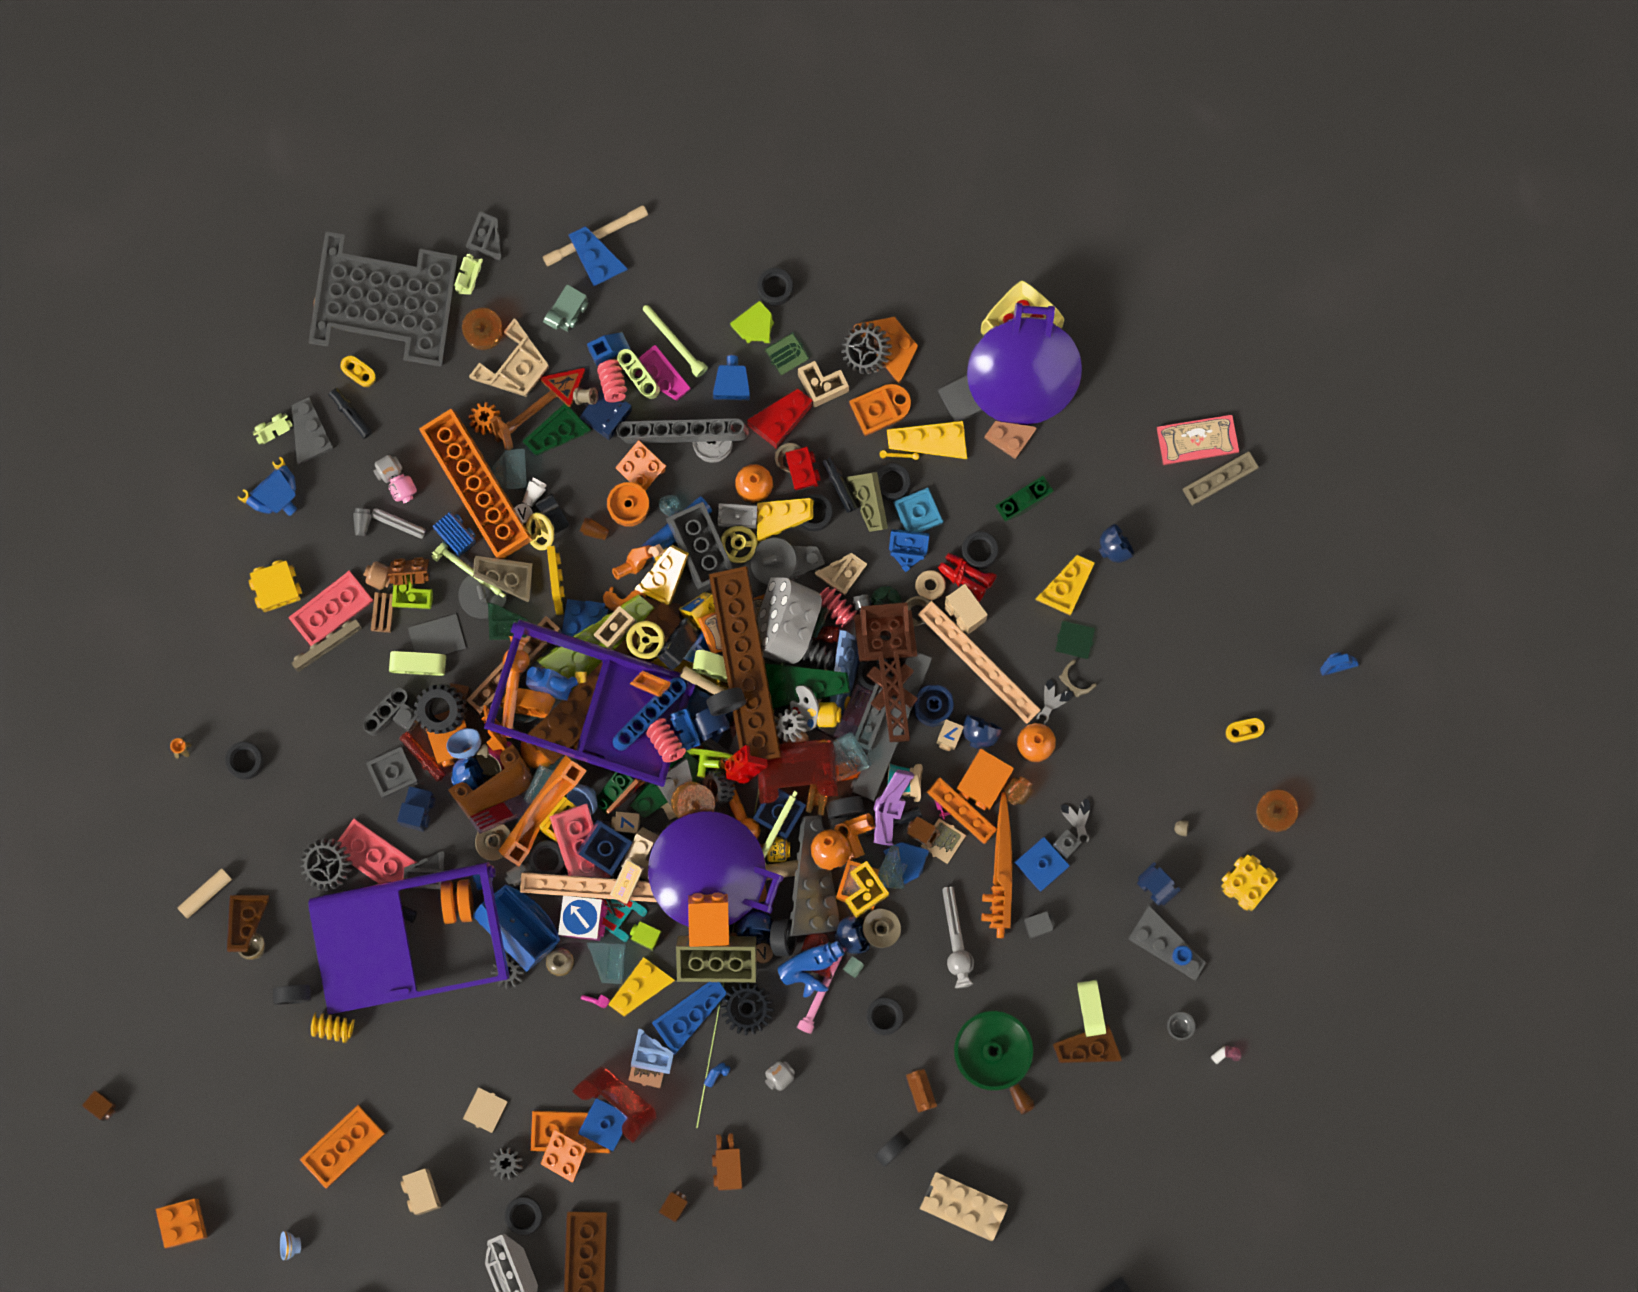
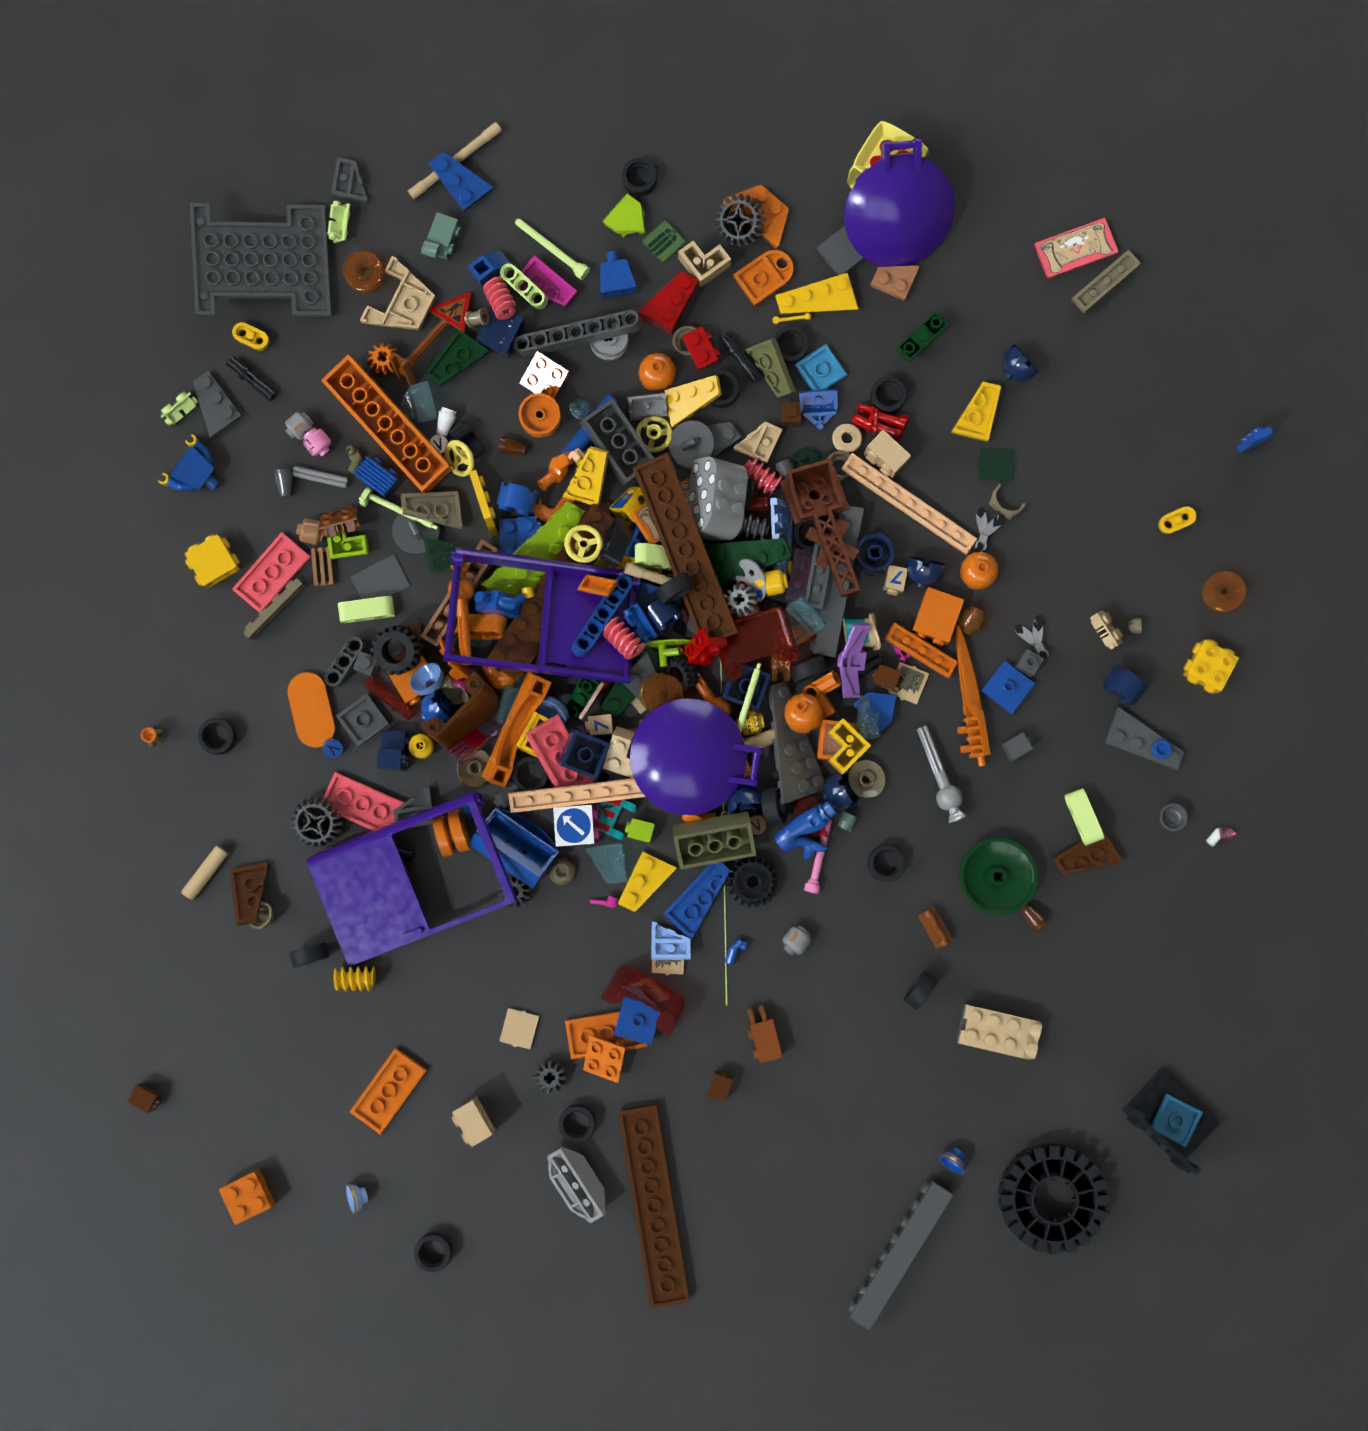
camera: 10 degrees left, 5 degrees up
(343, 752) = (311, 709): none -> orange tile
(356, 794) = (332, 748): none -> blue tile
(437, 511) = (355, 457): none -> olive arm
(447, 816) = (428, 747): none -> yellow head
(589, 582) = (517, 498): none -> blue brick
(614, 628) = (551, 537): tan brick -> none
(627, 881) = (612, 782): slope -> none
(708, 920) = (699, 805): orange brick -> none
(878, 551) = (790, 414): none -> reddish brown brick
(1151, 816) = (1105, 619): none -> tan hinge

